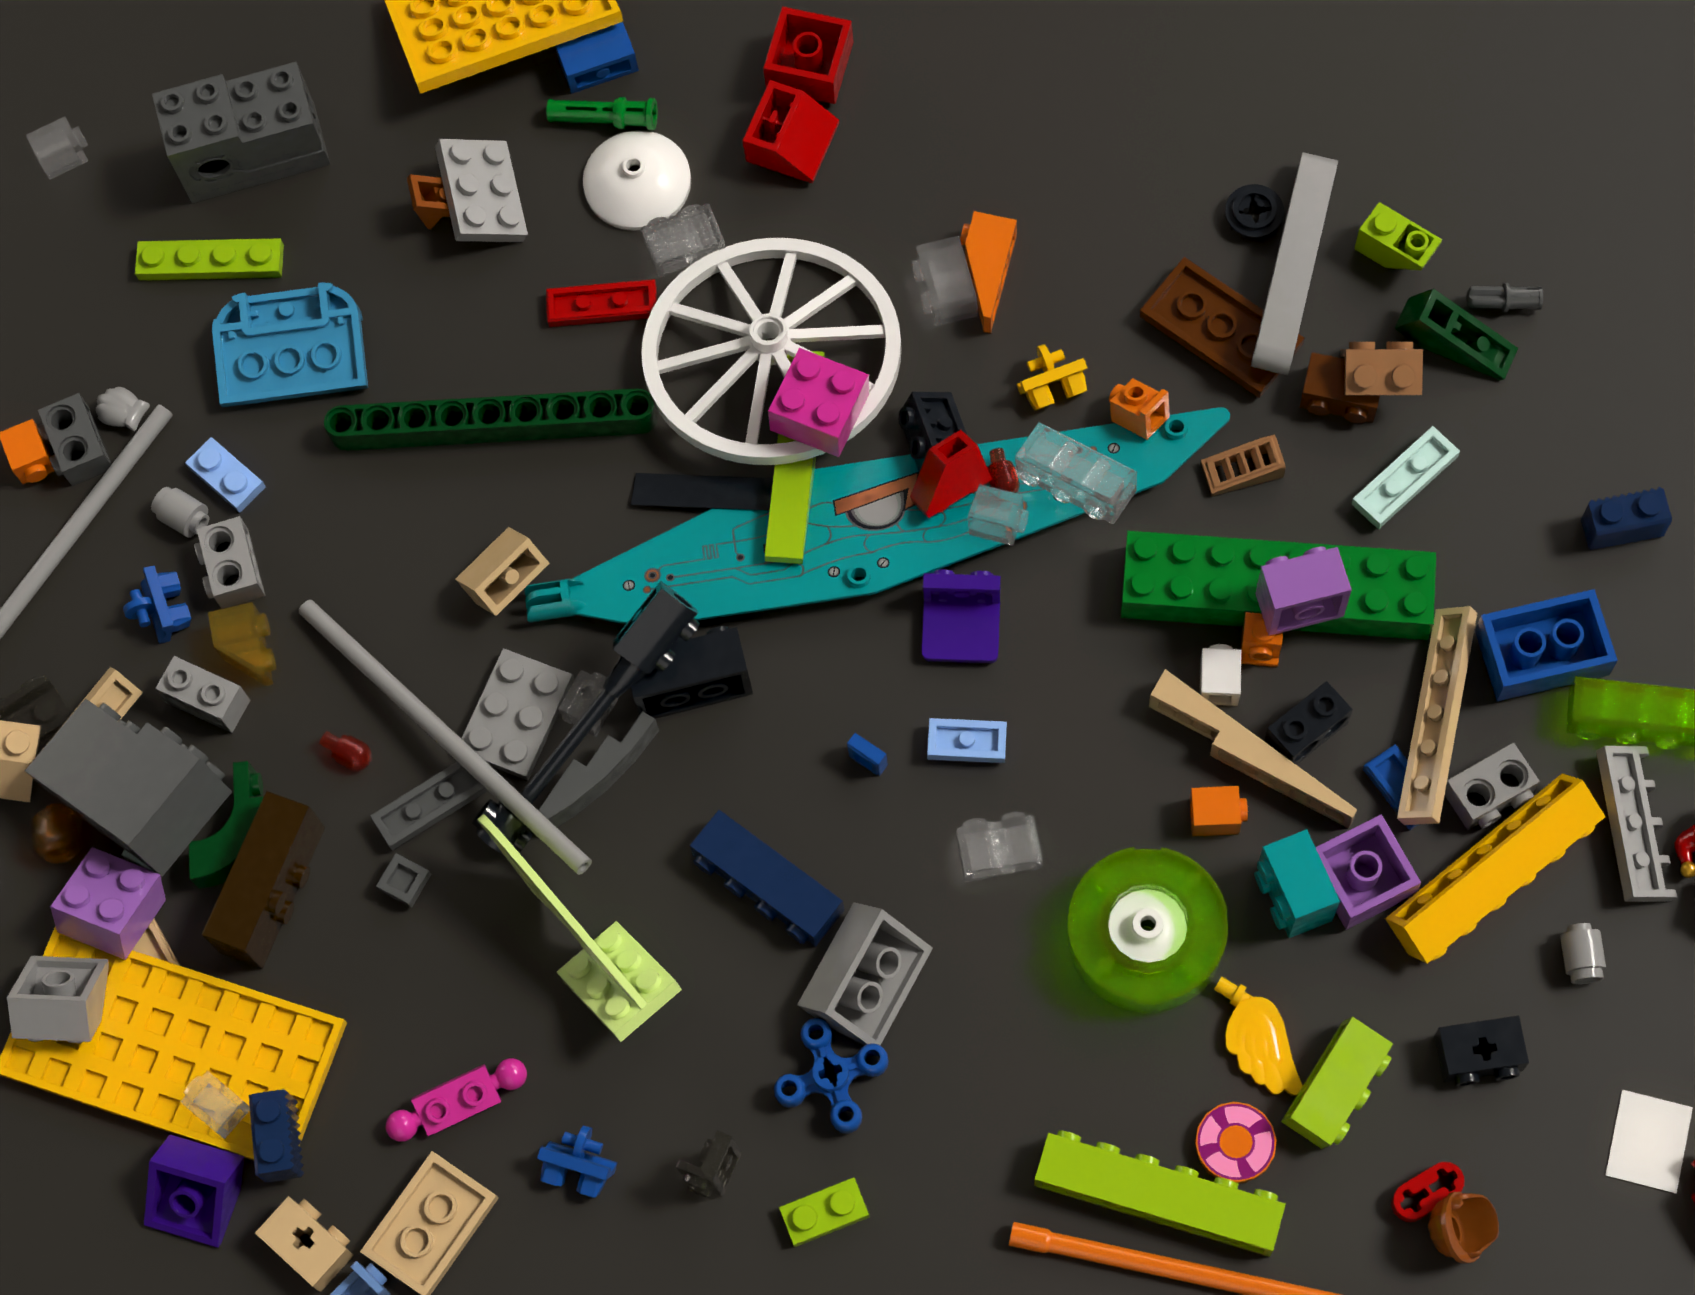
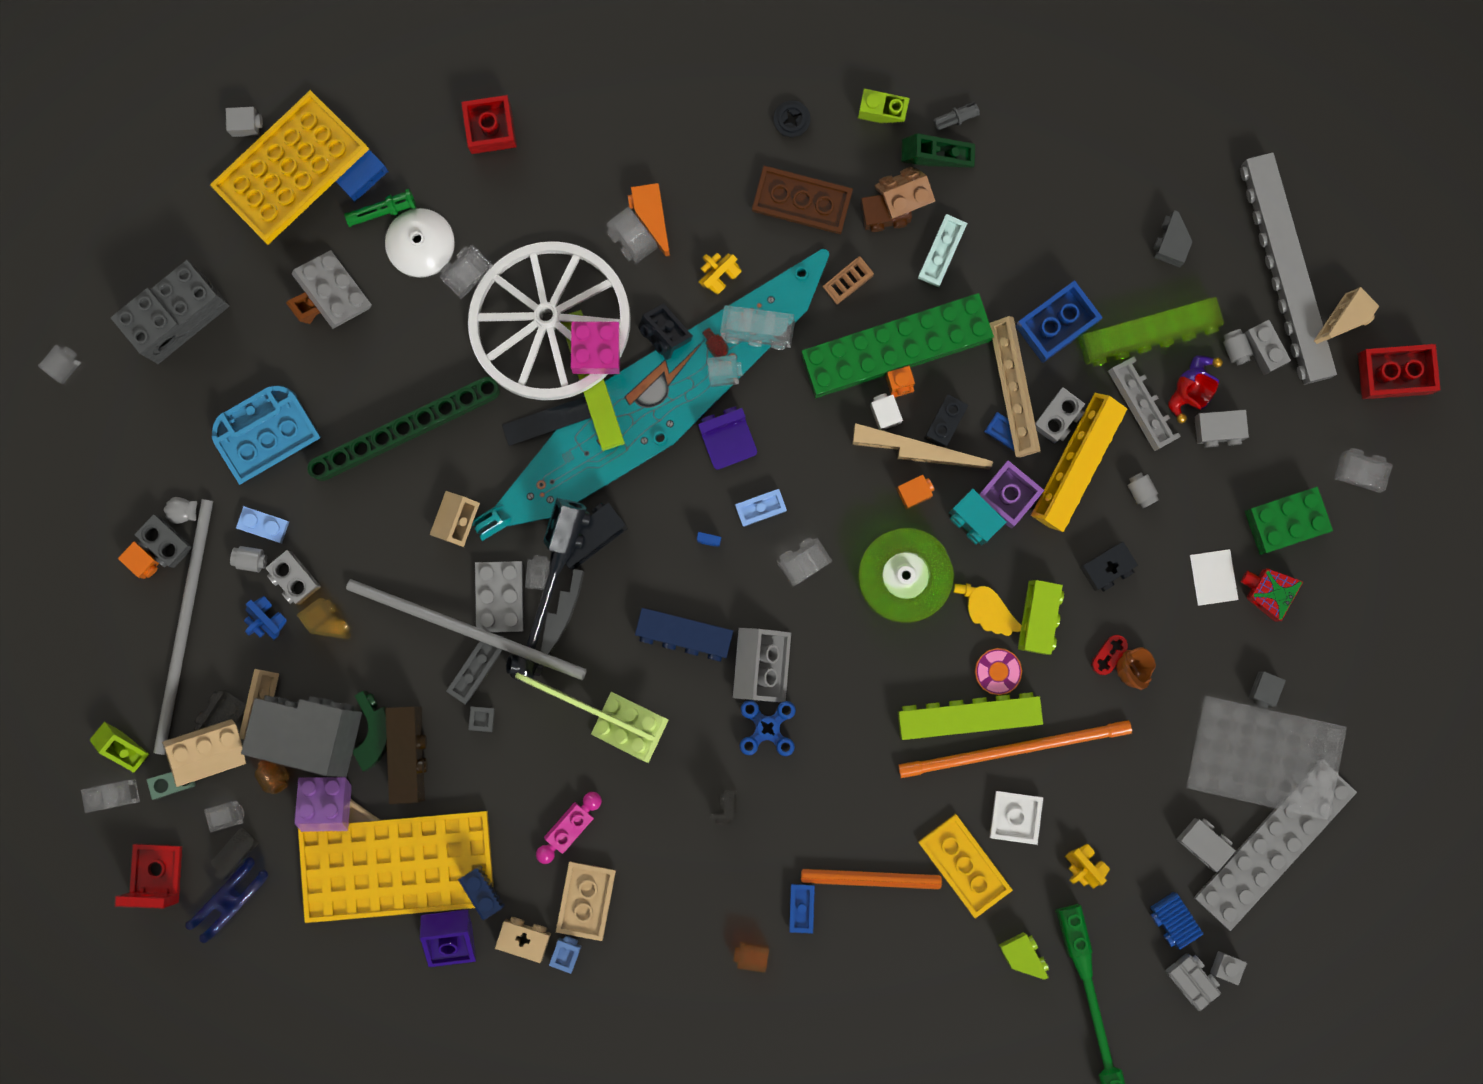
camera: 30 degrees left, 15 degrees up
(58, 999) = (322, 869): light grey slope -> none
(203, 694) = (315, 661): light grey brick -> none
(209, 259) = (187, 396): lime plate -> none
(214, 1104) = (438, 889): clear brick -> none
(347, 751) = (414, 658): clear red cylinder -> none
(560, 1158) = (650, 830): blue hips -> none
(600, 303) = (434, 329): red tile -> none
(789, 132) = (500, 179): red slope -> none
(824, 1212) = (795, 802): lime plate -> none
(949, 473) = (686, 357): red slope -> none
(1139, 407) = (776, 270): orange brick -> none
(1294, 264) = (829, 145): light grey beam -> none
(1302, 590) = (918, 352): medium lavender brick -> none
(1626, 518) = (1074, 226): dark blue brick -> none

